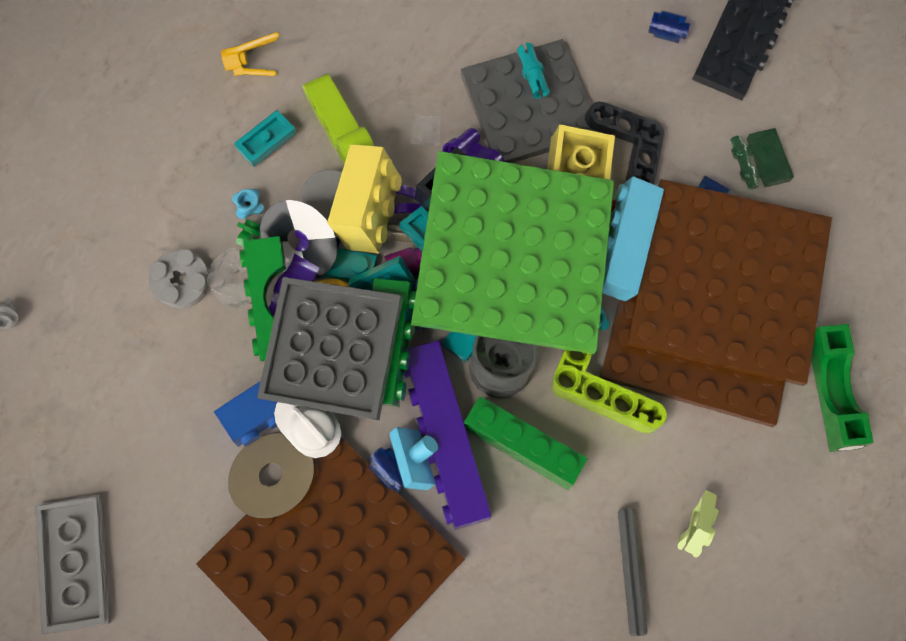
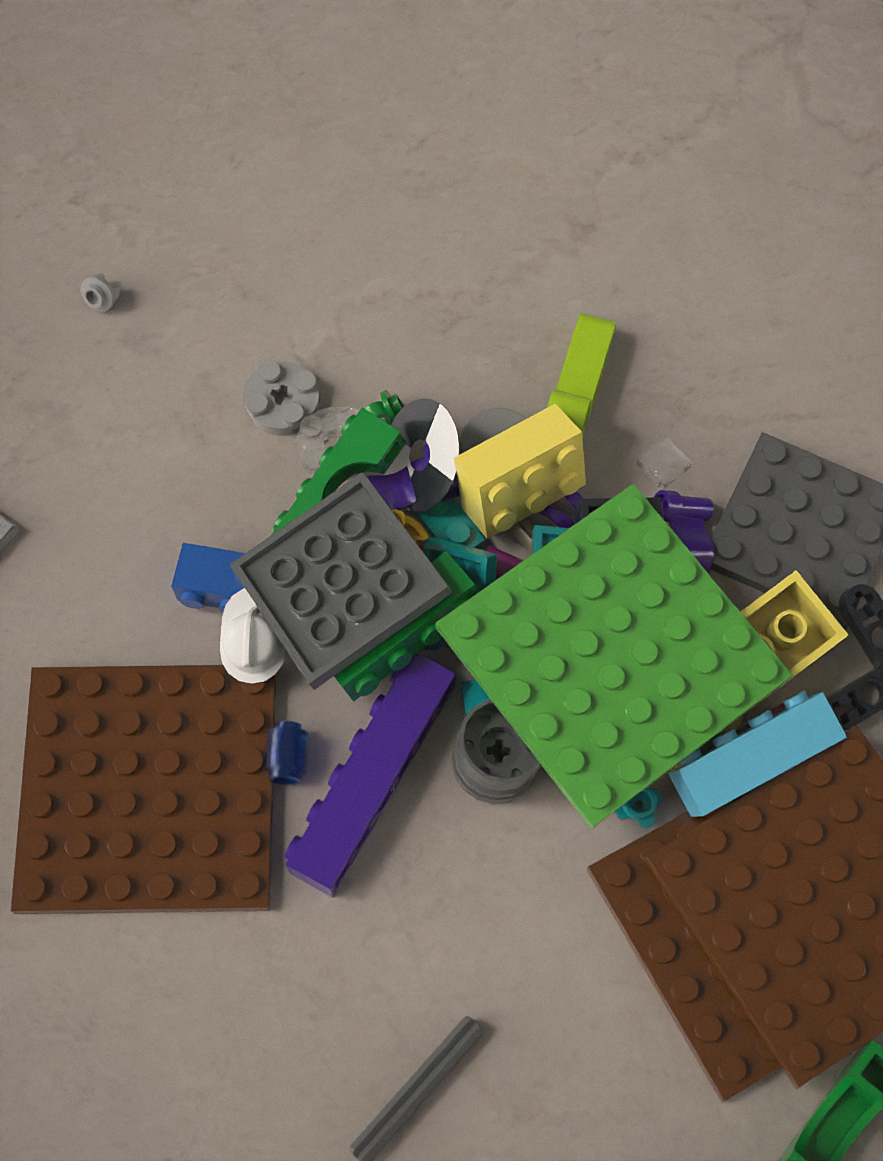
camera: 50 degrees right, 5 degrees down
(235, 57) = (545, 235): yellow plant -> none
(244, 196) = (415, 372): medium azure plate -> none
(265, 138) = (494, 334): teal plate -> none
(274, 500) = (146, 670): dark tan sticker -> none
(412, 457) = (318, 756): medium azure tile -> none
(524, 443) = (438, 855): green brick -> none
(533, 70) = (832, 496): teal pin -> none
(609, 393) = (573, 894): lime beam -> none
(700, 527) = (519, 1115): yellowish green plate -> none

